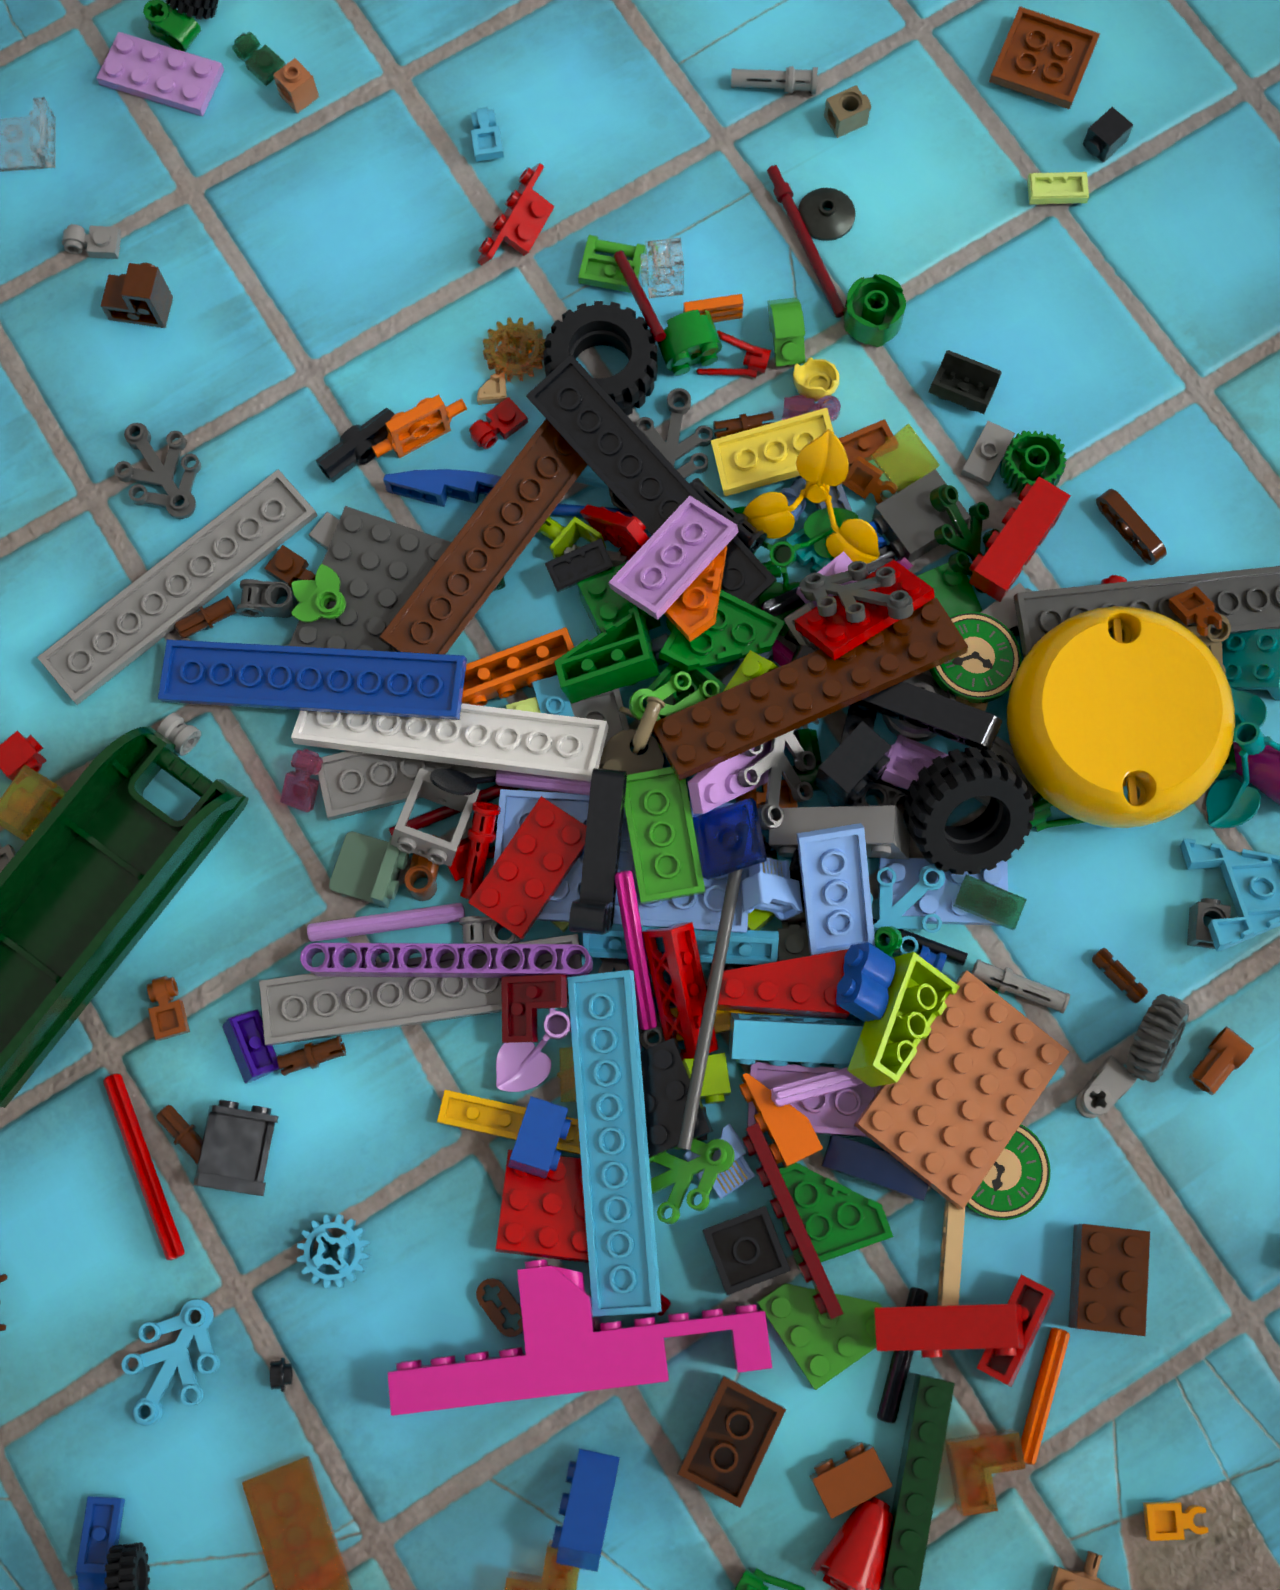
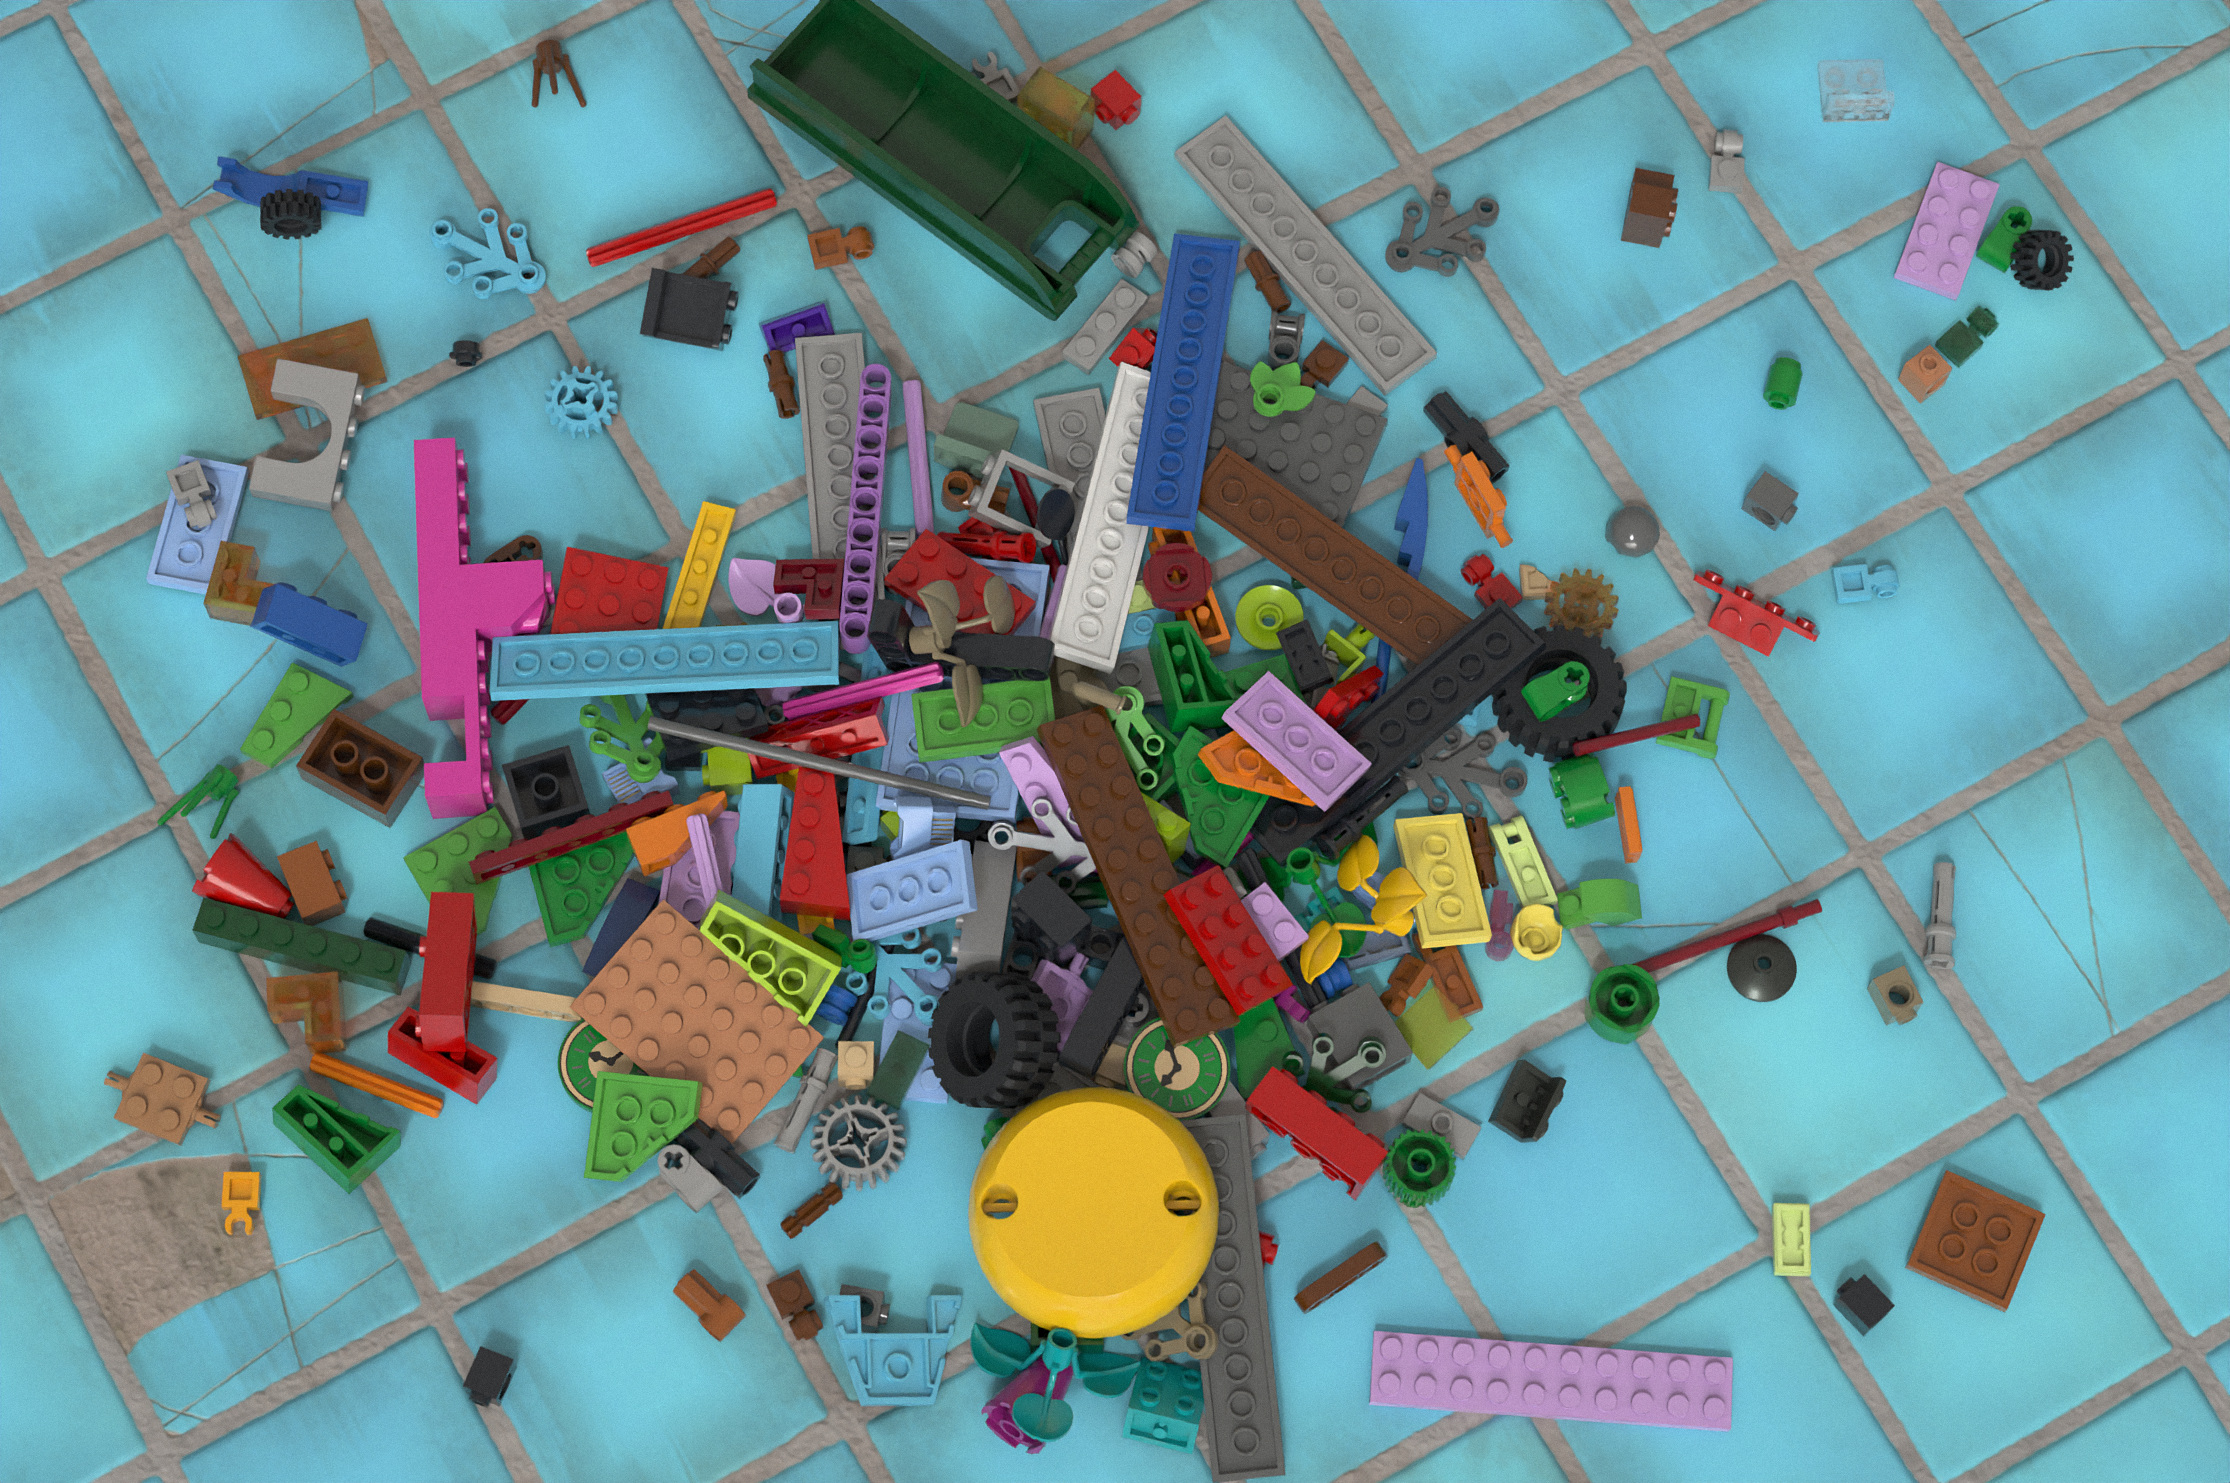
camera: 85 degrees right, 5 degrees down
(247, 758) = (1105, 326): none -> light grey plate
(275, 727) = (1136, 348): none -> red bracket
(298, 787) = (1070, 371): clear pink plate -> none
(305, 194) = (1783, 383): none -> green brick
(336, 1504) = (316, 481): none -> light grey arch
(414, 203) = (1771, 502): none -> dark grey brick
(443, 312) = (1632, 531): none -> dark grey hair
(499, 660) = (1165, 593): none -> dark red plate
(532, 590) = (1263, 603): none -> lime dish
(538, 1138) = (675, 592): blue brick -> none
(590, 859) = (943, 607): none -> dark tan plant
(612, 347) = (1551, 693): none -> green piece
(663, 268) = (1676, 766): clear brick -> none
(671, 1520) = (291, 713): none -> bright green wing
(729, 839) = (972, 781): clear blue plate -> none
(753, 392) = (1523, 863): none -> yellowish green plate
(755, 358) = (1566, 870): red plant -> none
(818, 587) = (1258, 897): dark grey plant -> none
(865, 981) = (810, 913): blue brick -> none
(986, 941) = (856, 1064): none -> tan brick
(1062, 948) = (867, 1170): none -> light grey gear
(1062, 1138) = (636, 1120): none -> bright green plate
(1078, 1069) = (718, 1157): none -> black piece
(1107, 1430) = (335, 1138): none -> green wedge
(1109, 1279) = (486, 1158): reddish brown brick -> none
(1157, 1038) = (734, 1226): dark grey gear -> none
(1195, 368) = (1551, 1381): none -> lavender plate
(1195, 607) = (1221, 1312): dark orange plate -> none
(1202, 988) = (792, 1297): none -> reddish brown plate

